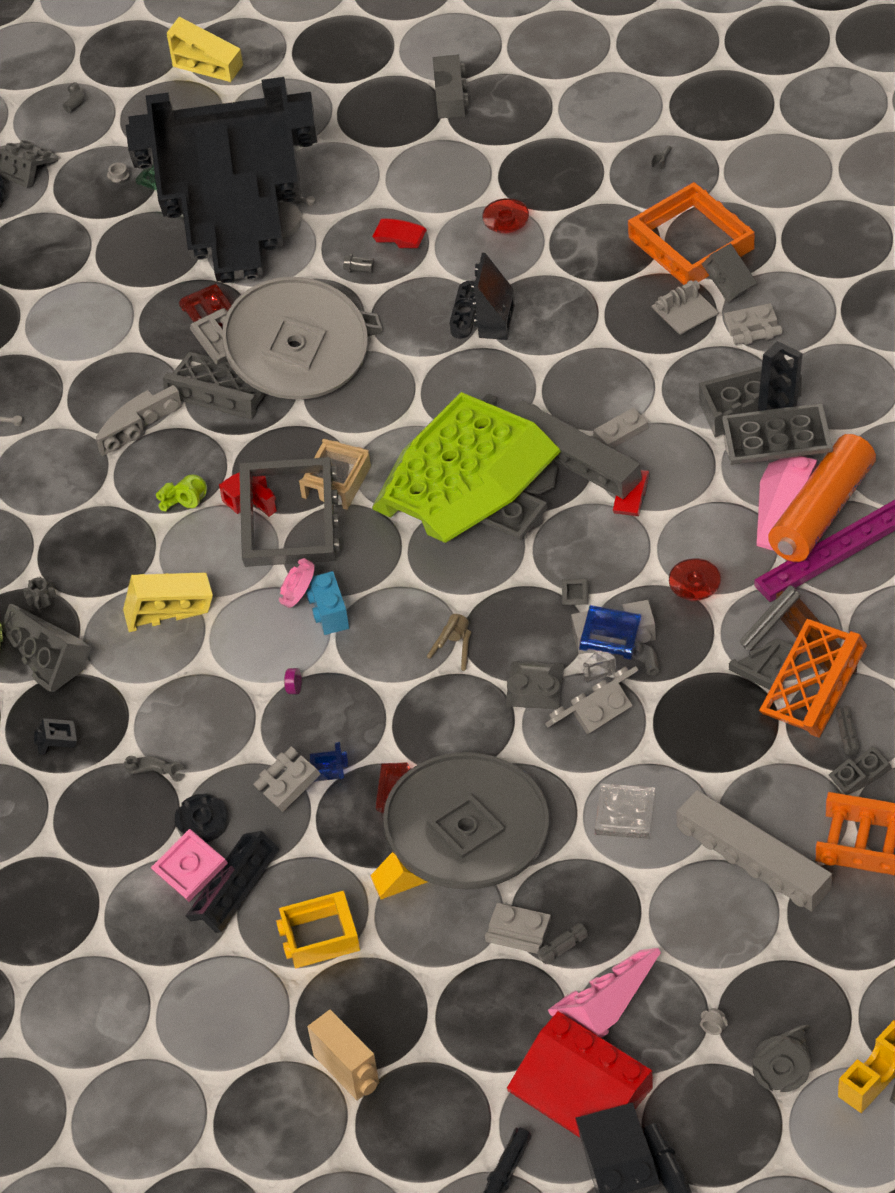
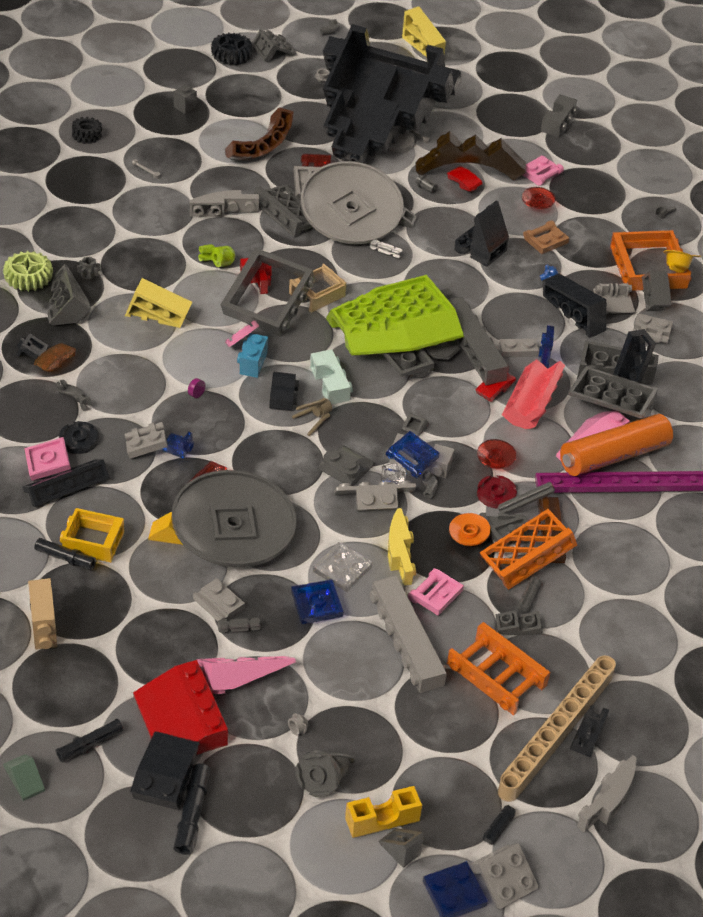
camera: 20 degrees right, 5 degrees down
(92, 731) = (53, 357): none -> clear orange slope
(125, 300) = (278, 128): none -> reddish brown brick
(304, 969) = (74, 556): none -> black pin
(375, 378) = (386, 248): none -> axle
(392, 193) = (472, 150): none -> dark brown arch
(396, 630) = (282, 391): none -> black brick
(424, 570) = (335, 384): none -> light aqua arch
(473, 172) = (541, 170): none -> bright pink plate
(555, 268) = (548, 241): none -> medium nougat plate
(590, 312) = (549, 271): none -> blue plant
(628, 868) = (317, 601): none -> clear blue plate
(649, 335) = (577, 303): none -> black wedge
(660, 417) = (547, 346): none -> clear blue plate
(665, 749) = (399, 547): none -> light yellow slope
(683, 481) = (532, 394): none -> coral brick
(724, 625) = (495, 490): none -> dark red tile
(730, 680) = (469, 529): none -> orange dish
(734, 222) = (678, 260): none -> yellow piece
(755, 783) = (440, 595): none -> bright pink plate

